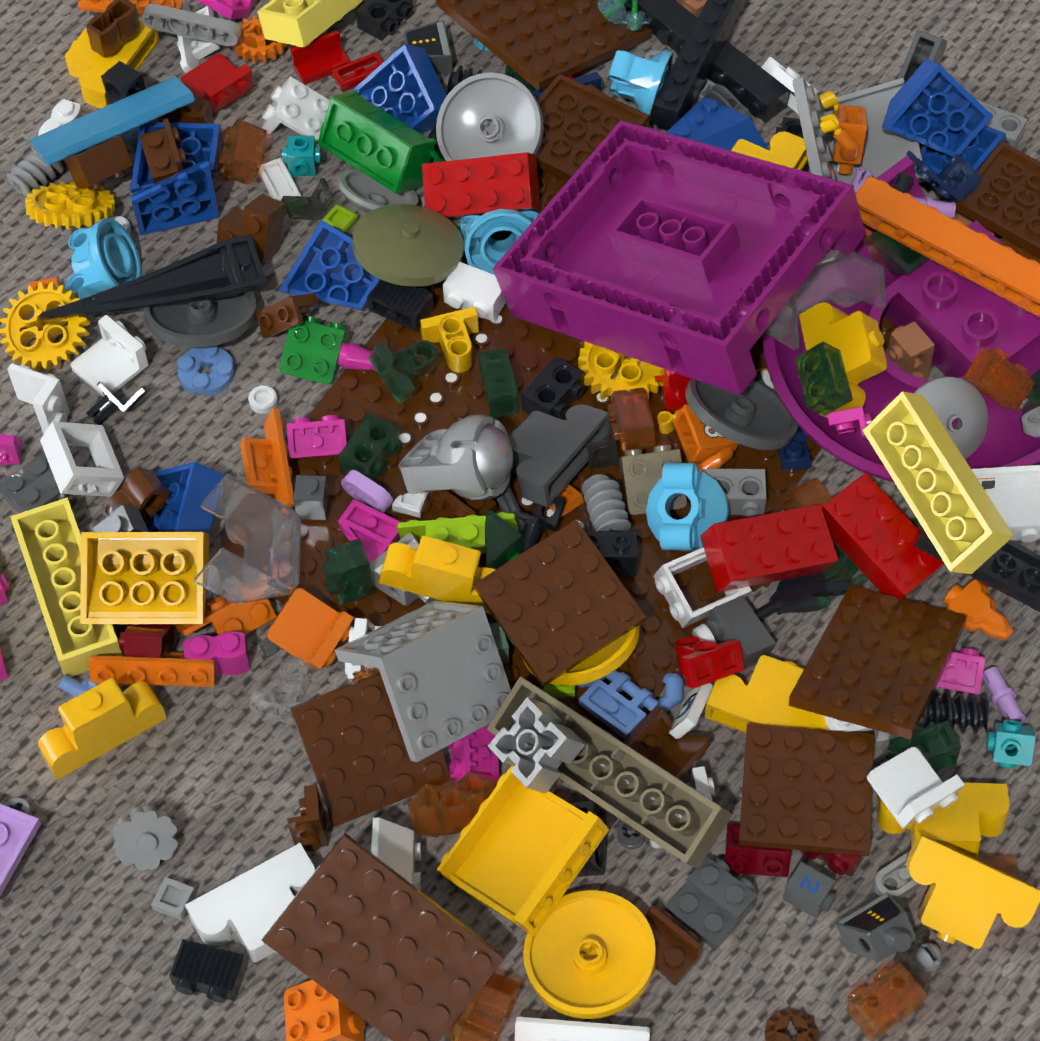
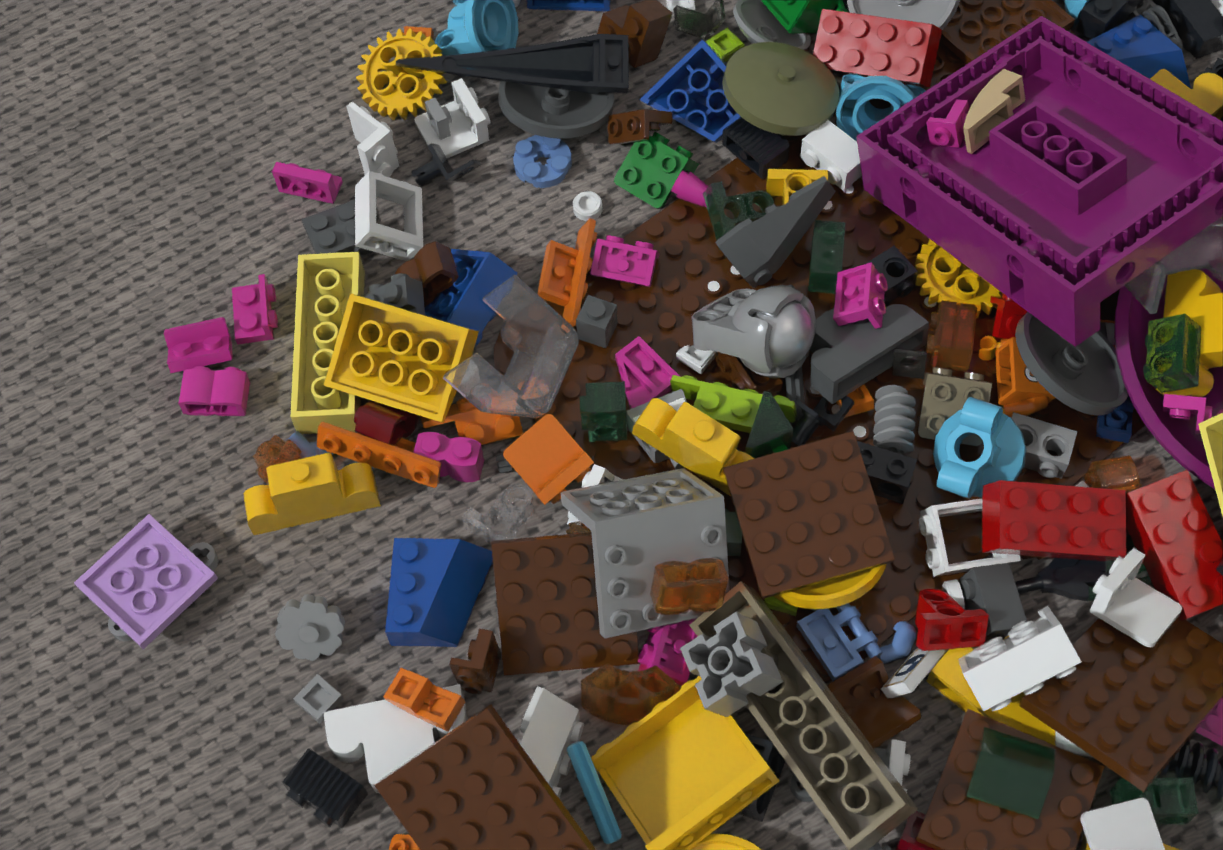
camera: 20 degrees right, 5 degrees up
(50, 700) = (274, 452): none -> clear orange brick
(95, 357) = (438, 117): none -> light grey plate
(245, 773) = (433, 590): none -> blue wedge
(273, 865) = (423, 699): none -> orange slope
(366, 446) = (668, 284): clear green brick -> none
(366, 491) = (655, 332): lavender beam -> none
(440, 386) = (763, 245): none -> dark grey wedge
(450, 893) = (594, 792): none -> medium azure axle
(477, 692) = (689, 586): none -> clear orange brick
(541, 406) = (860, 295): none -> dark pink bracket
(575, 240) = (949, 131): none -> dark pink bracket
(604, 211) = (992, 107): none -> tan slope
(778, 670) = (1019, 662): none -> white wedge
(800, 762) = (1012, 773): none -> clear green slope
(855, 597) = (1131, 603): none -> white bracket

